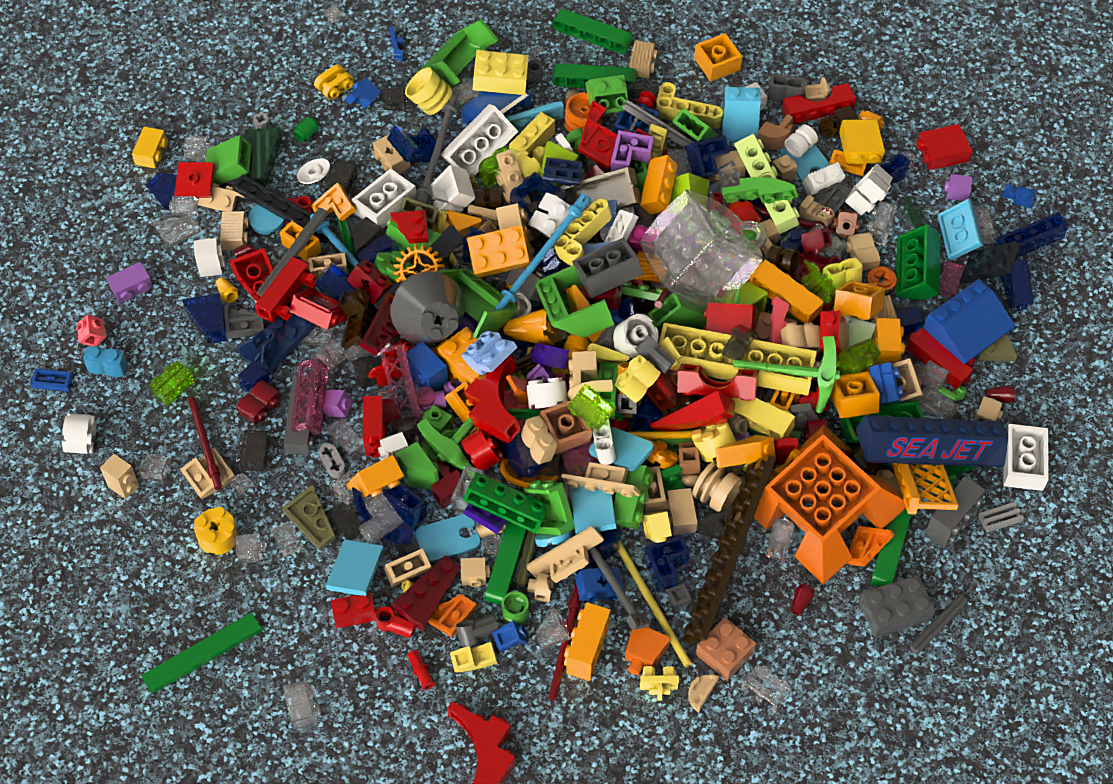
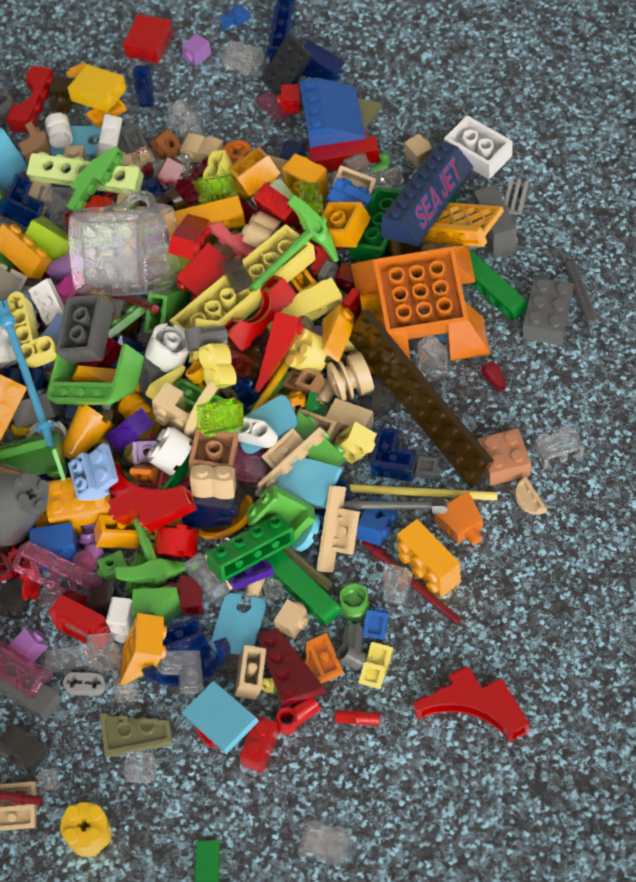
camera: 50 degrees left, 0 degrees up
(249, 547) = (126, 807): clear brick -> none
(344, 520) = (157, 704): clear smoke slope -> none
(357, 453) = (103, 652): none -> clear window
(541, 587) = (347, 570): tan piece -> none
(659, 684) = (503, 525): light yellow hips -> none
(749, 288) = (189, 236): none -> red brick
(817, 92) = (19, 91): tan bracket -> none
(867, 544) = (480, 297): orange wing -> none
(869, 190) = (151, 107): white piece -> none
(913, 214) = (197, 97): clear green piece -> none
(918, 263) = (243, 118): green slope -> none
(959, 282) = (289, 98): none -> red brick
(960, 229) = (236, 71): medium azure tile -> none
(1002, 394) = (409, 129): dark red cone -> none

